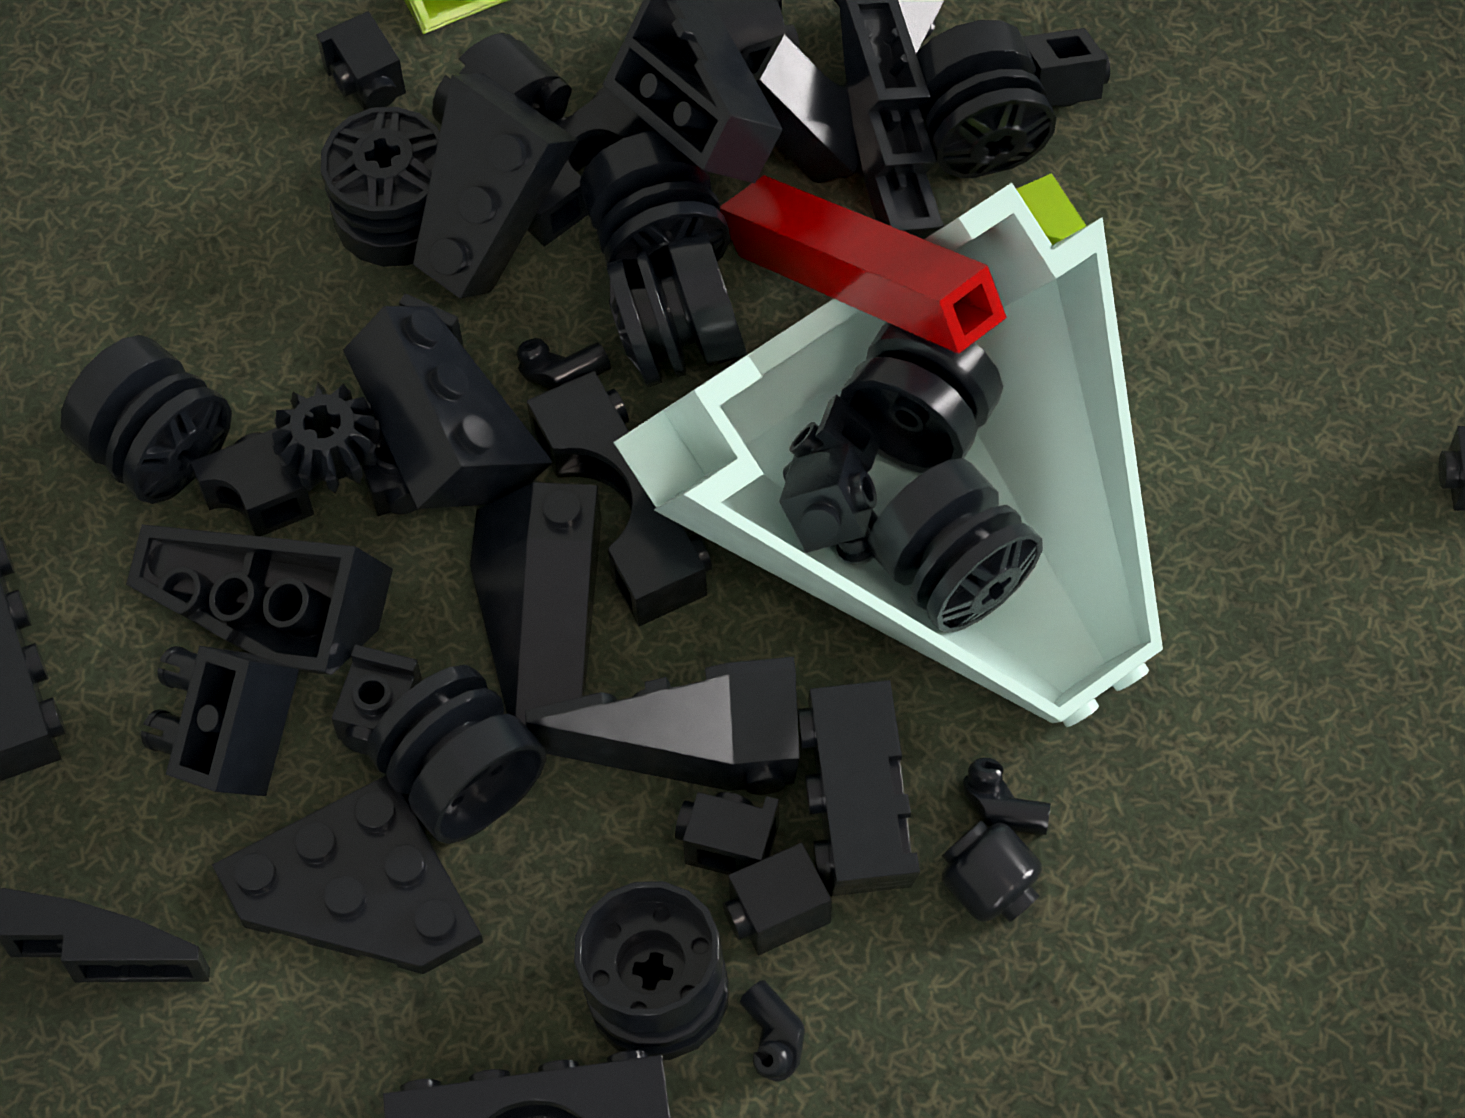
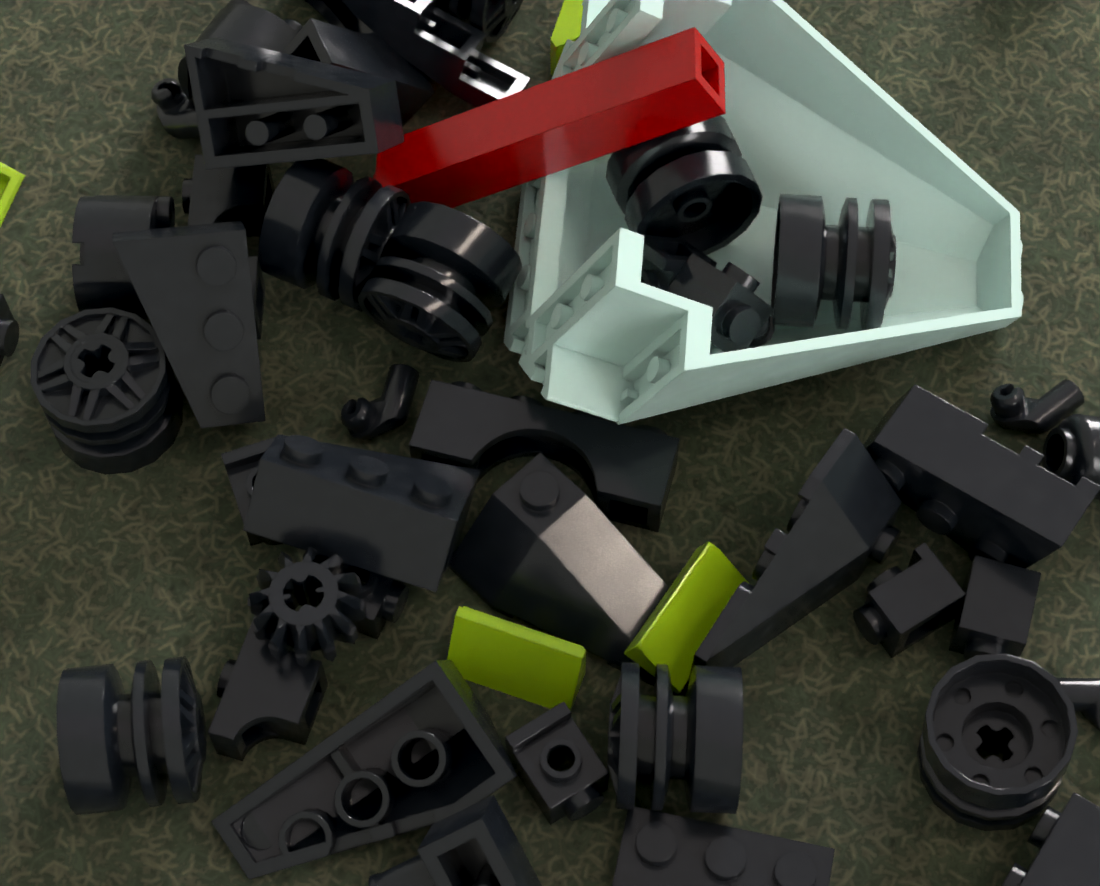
camera: 50 degrees left, 0 degrees up
(434, 609) = (516, 659): none -> lime slope
(565, 679) = (686, 614): none -> lime slope

